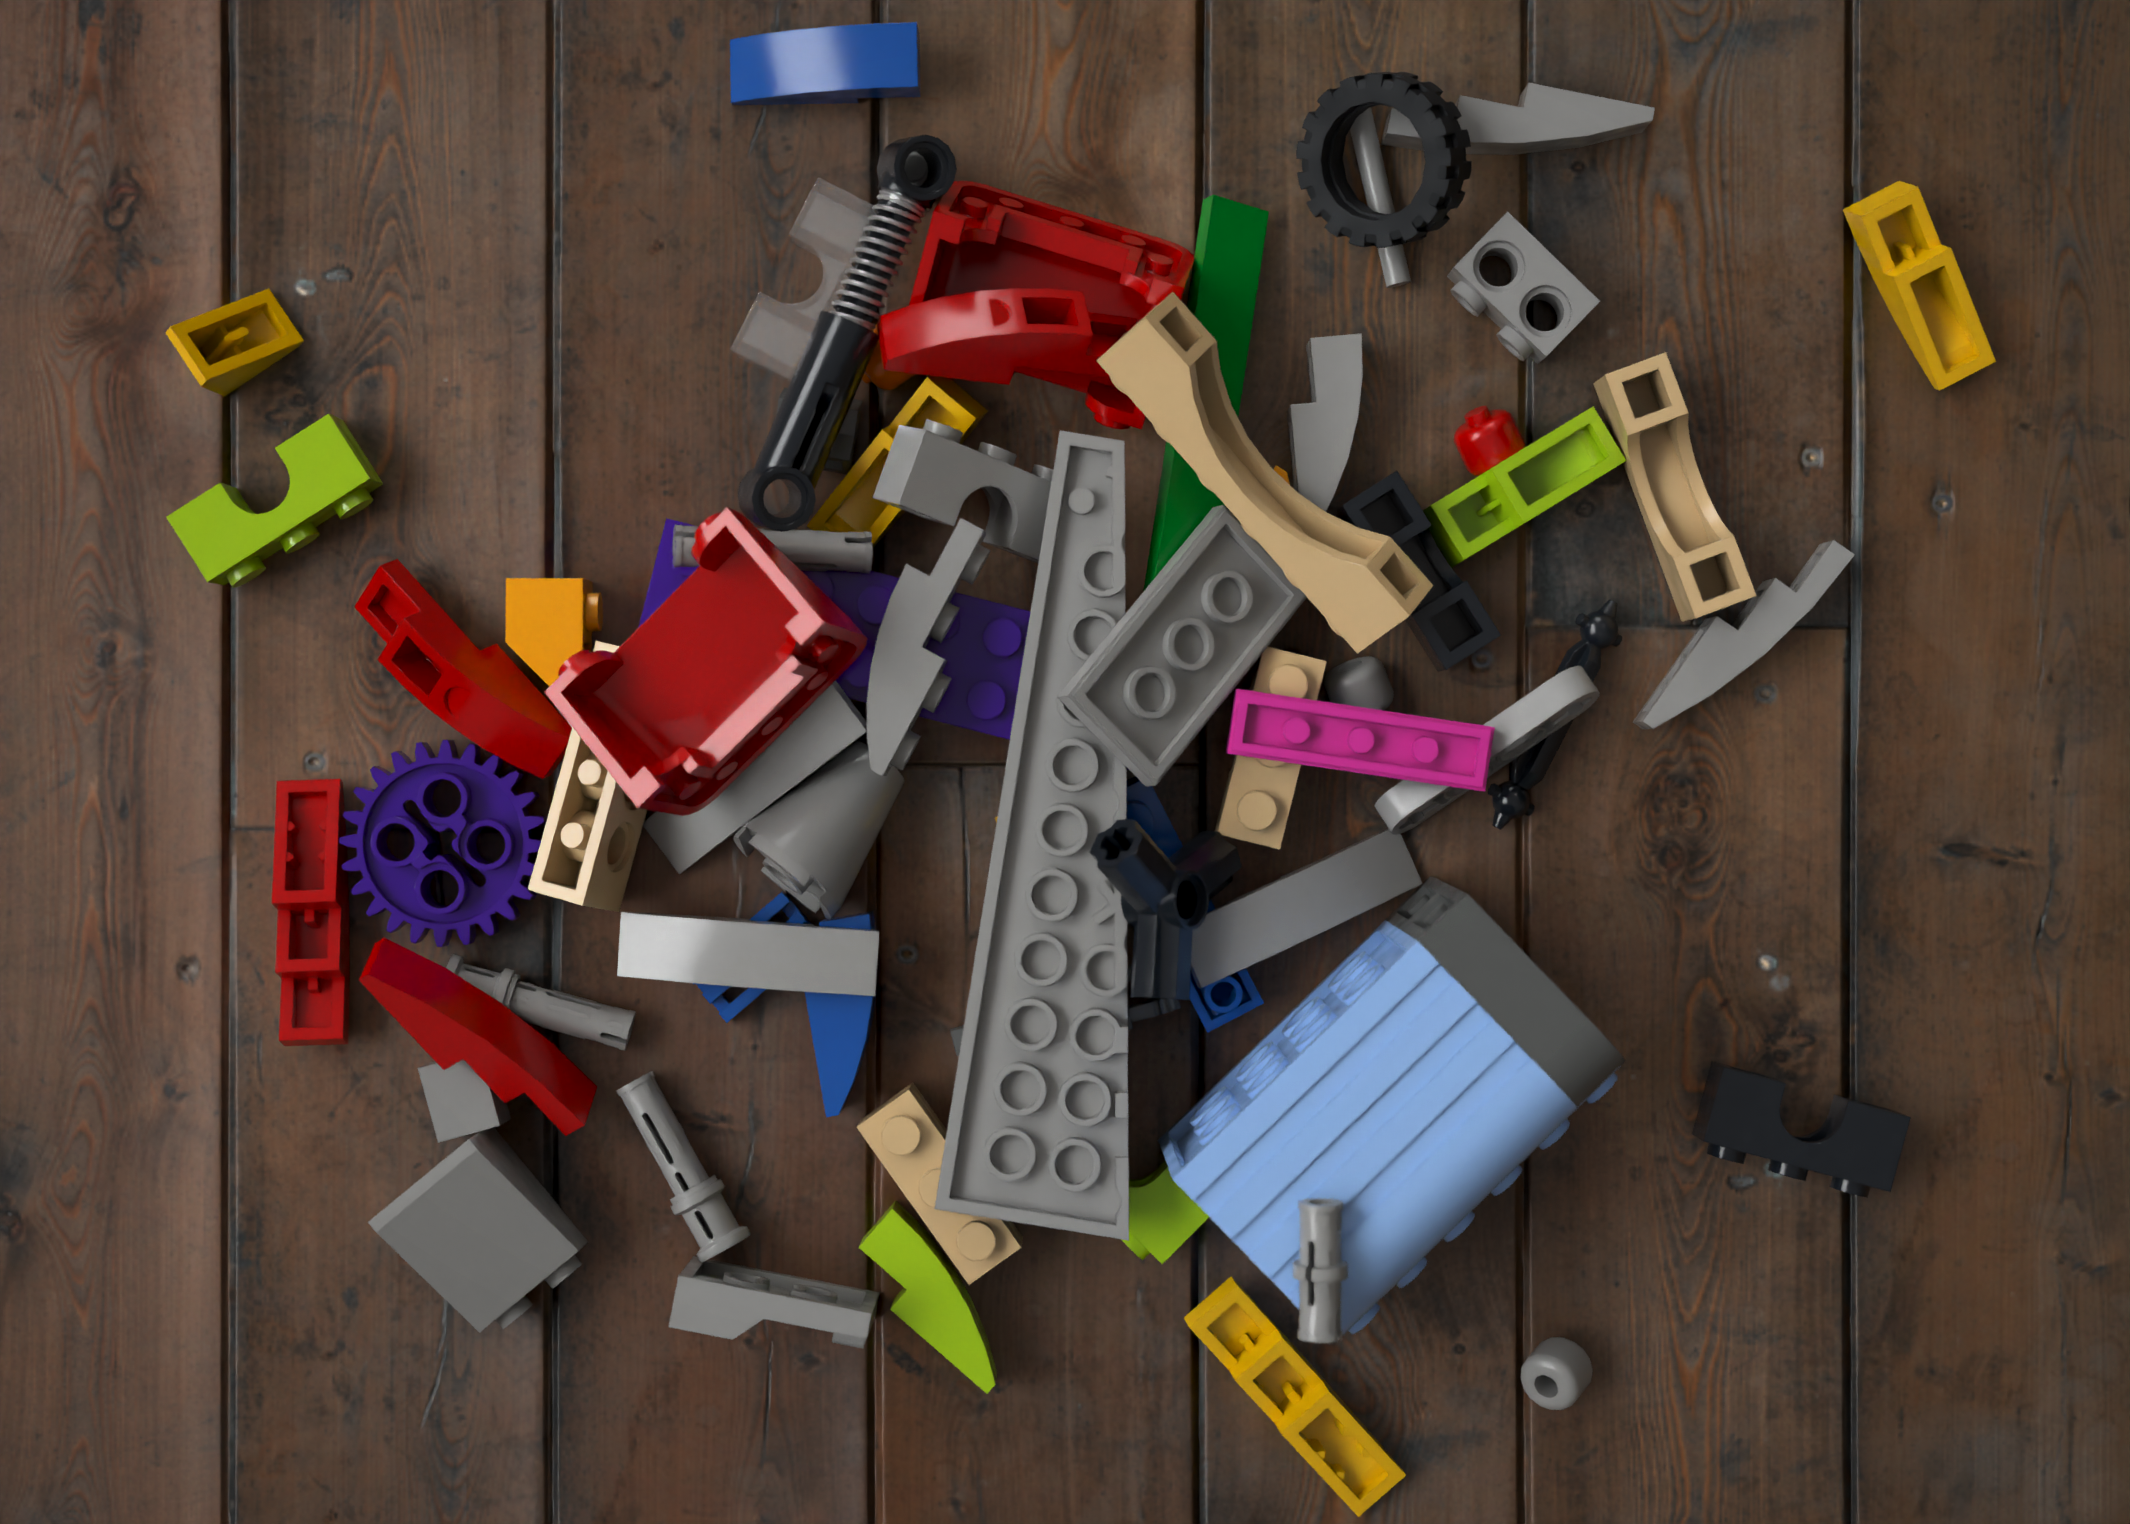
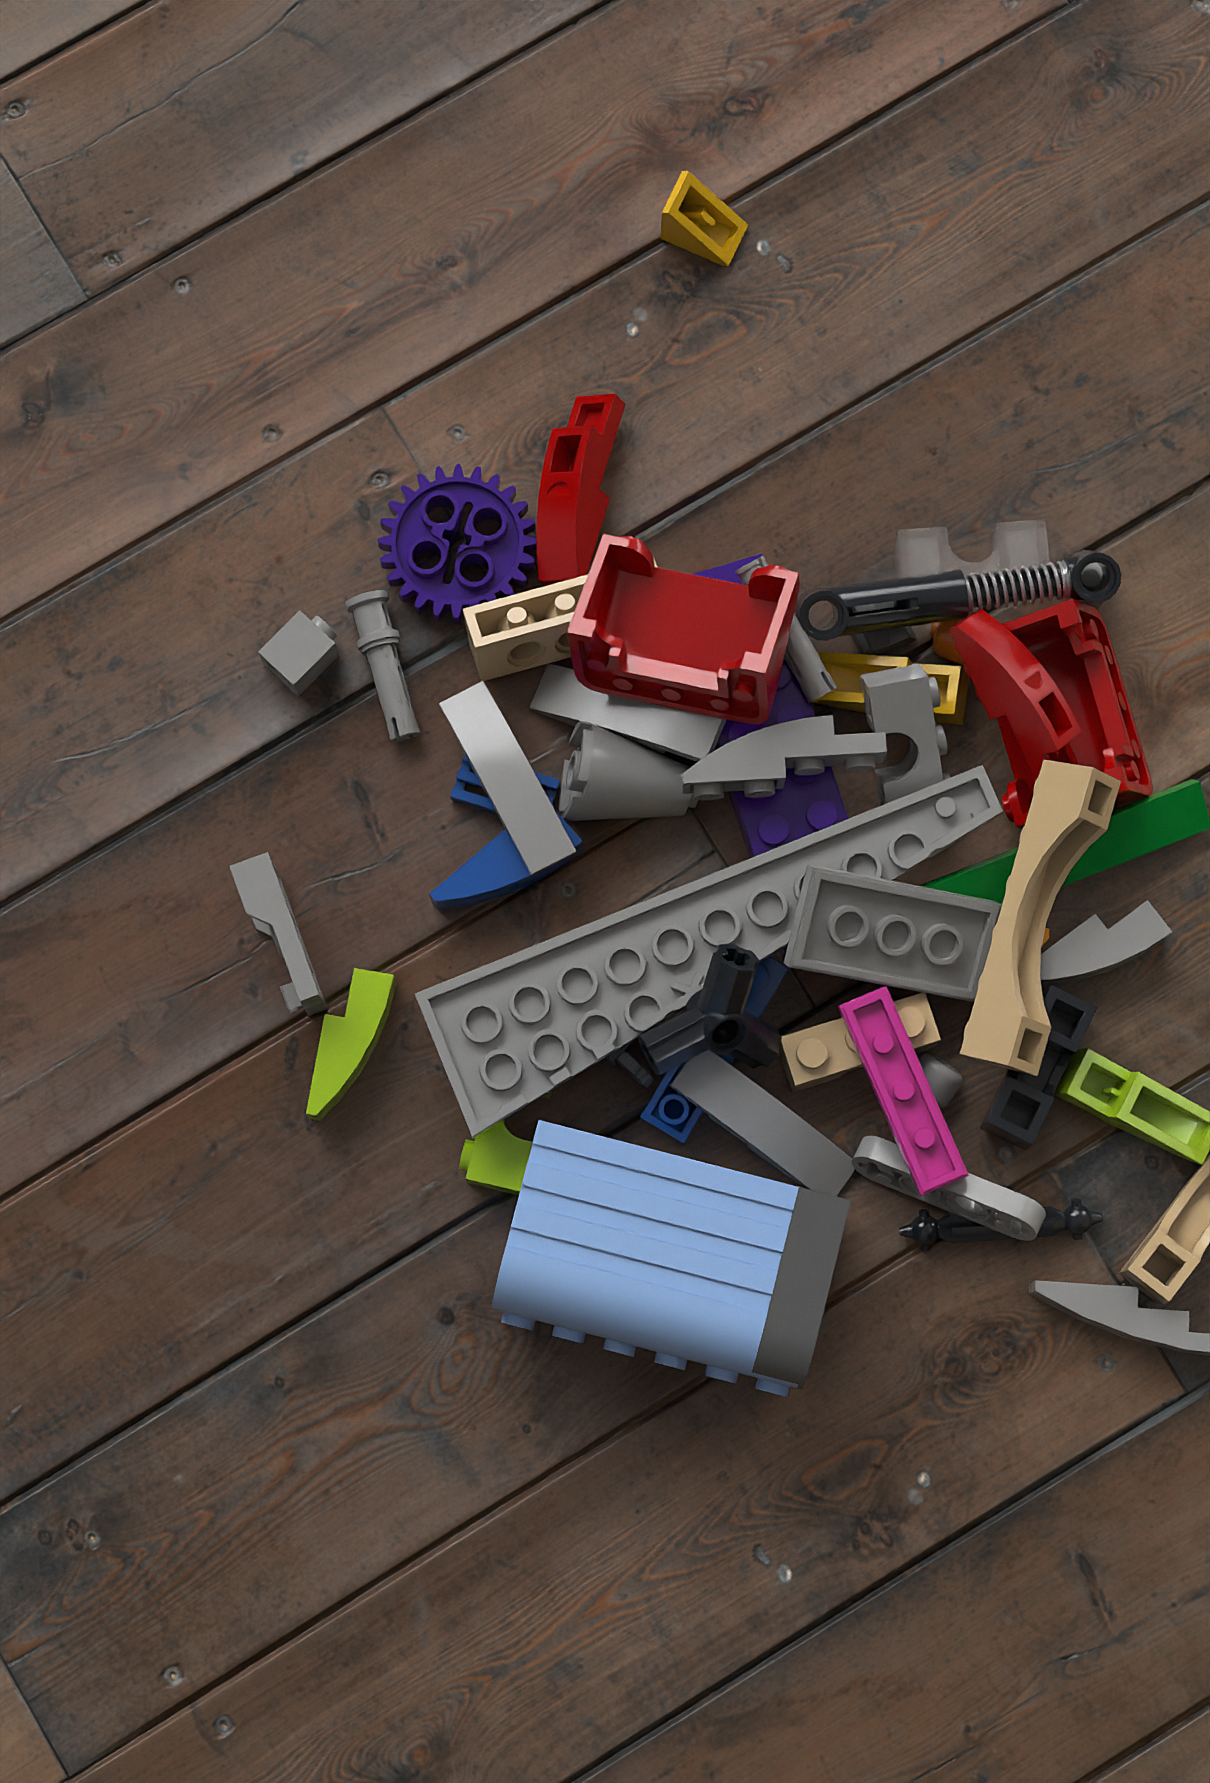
camera: 60 degrees right, 10 degrees down
(312, 912) = (358, 487): red slope -> none
(326, 479) = (647, 330): lime arch -> none
(466, 1024) = (348, 617): red slope -> none
(482, 1231) = (215, 715): light grey slope -> none
(551, 621) = (652, 518): light orange slope -> none
(696, 1194) = (322, 844): light grey pin -> none
(826, 65) = (1121, 485): blue slope -> none
(911, 1148) = (443, 956): tan arch -> none
(1294, 1396) = (426, 1331): yellow slope -> none
(1320, 1270) = (538, 1255): light grey pin -> none
(1487, 439) = (1157, 1062): red piece -> none
(1556, 1373) = (552, 1501): light grey piece -> none
(1854, 1145) = (832, 1615): black arch -> none

